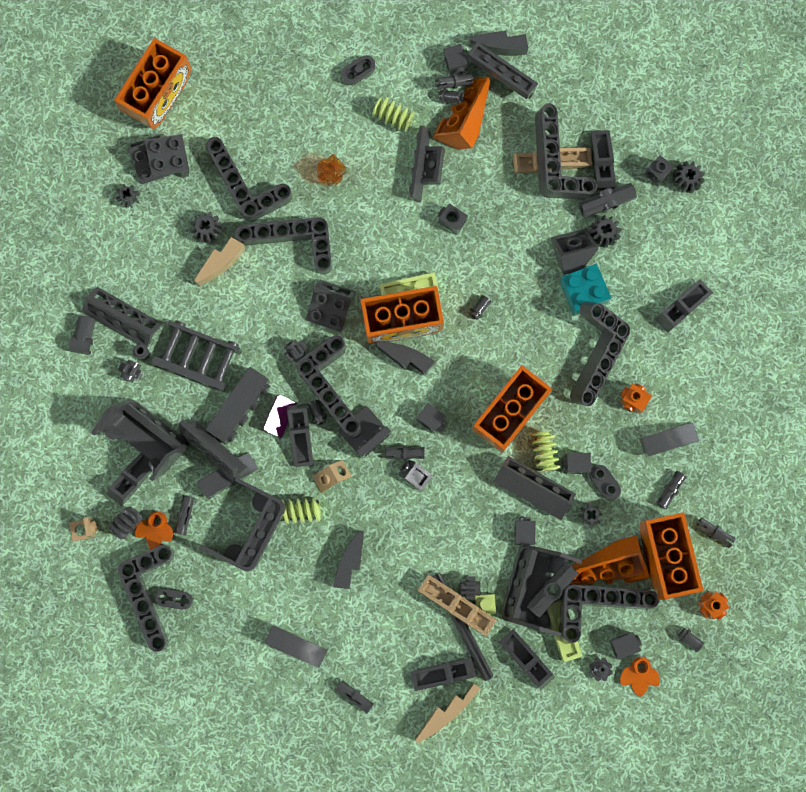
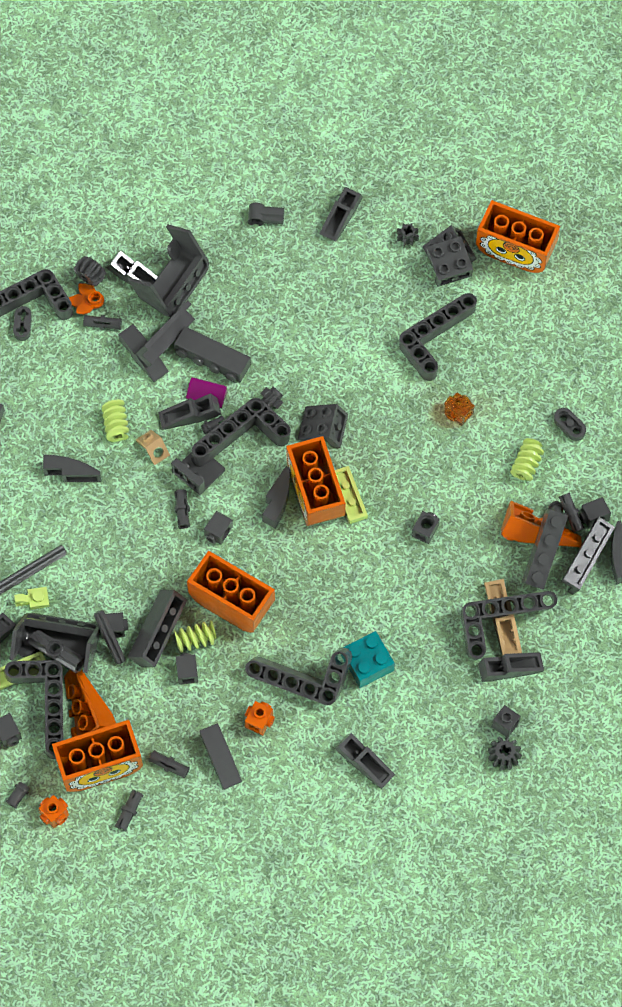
camera: 85 degrees right, 15 degrees down
(90, 529) = (82, 242): tan bracket -> none
(94, 259) = (341, 214): none -> dark grey slope
(118, 319) = (284, 240): dark grey fence -> none
(130, 371) = (235, 258): dark grey gear -> none
(138, 349) = (254, 264): dark grey pin -> none
(199, 374) = (242, 301): dark grey fence -> none
(209, 220) = (385, 311): dark grey gear -> none
(220, 261) = (353, 321): tan slope -> none
(271, 511) = (69, 374): dark grey windscreen -> none
(291, 235) = (390, 381): dark grey beam -> none
(415, 474) = (160, 519): bracket -> none
(427, 164) = (479, 496): dark grey bracket -> none
(457, 605) = (34, 567): tan slope -> none
(470, 588) = (53, 579): dark grey gear -> none
(481, 305) = (337, 563): dark grey pin -> none
(495, 107) = (544, 549): none -> dark grey brick
(541, 535) = (109, 637): none -> dark grey axle
(574, 250) = (408, 643): dark grey slope -> none
(584, 515) = (136, 691): dark grey gear -> none
(605, 482) = (171, 699): dark grey plate -> none
(607, 199) = (467, 674): dark grey piece -> none
(610, 236) = (440, 678): dark grey gear -> none

